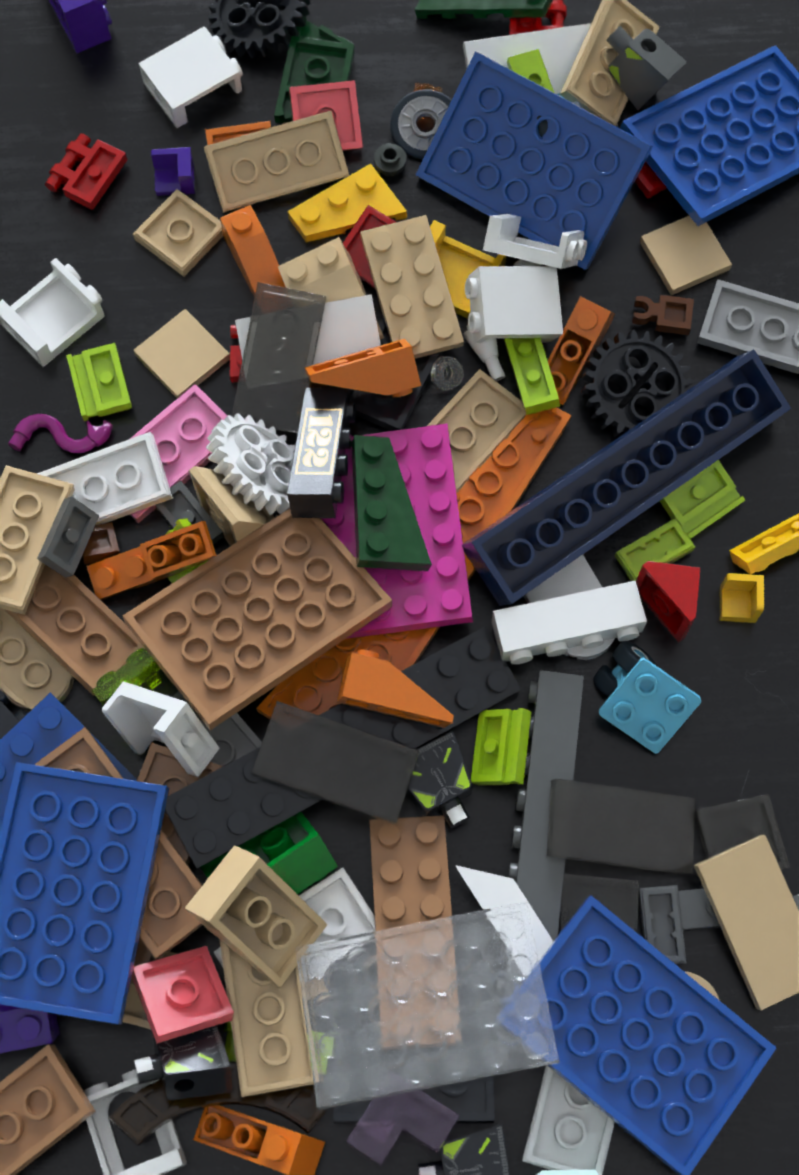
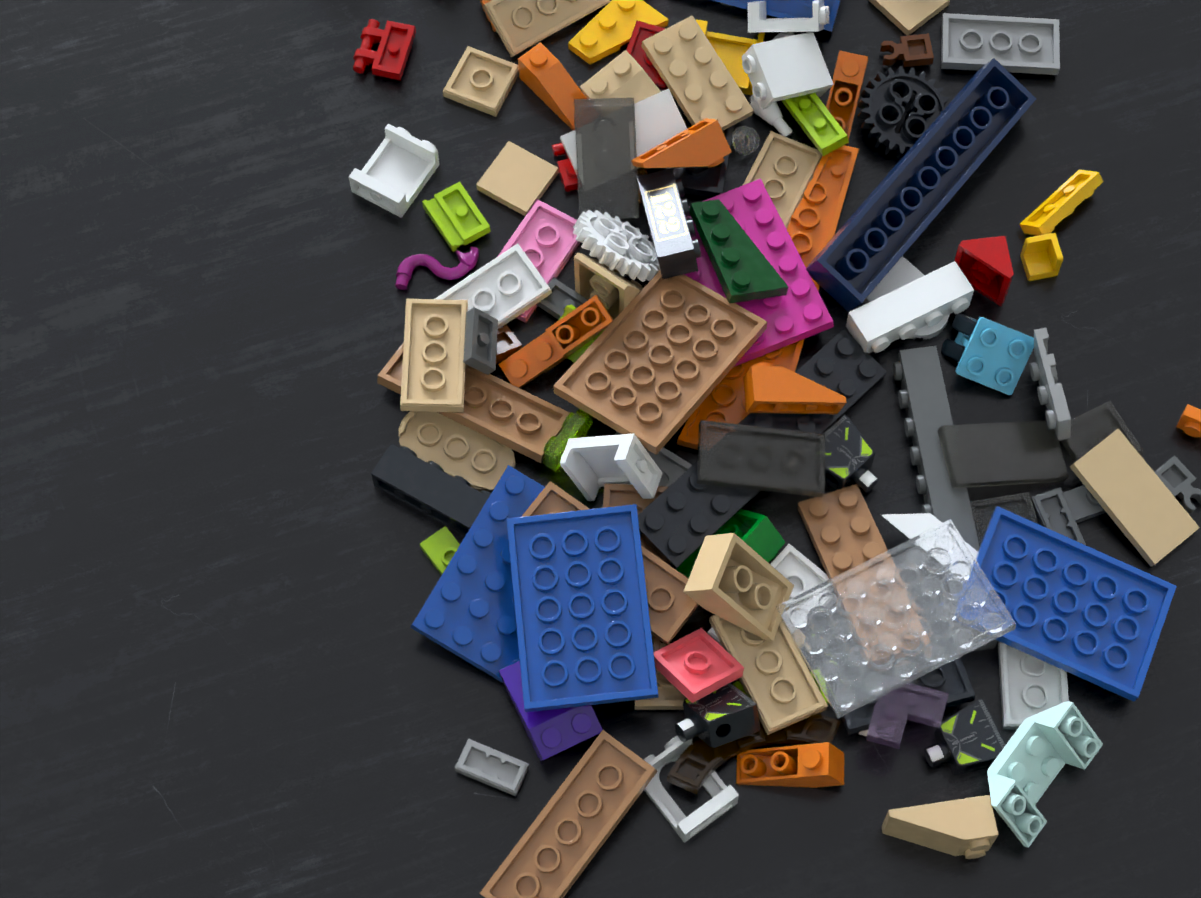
camera: 15 degrees left, 5 degrees down
(173, 170) = (460, 31): dark purple panel -> none
(501, 747) = (886, 418): lime plate -> none
(661, 545) = (967, 227): lime plate -> none
(698, 767) = (1050, 391): none -> light grey wing
(702, 499) = (985, 190): lime plate -> none

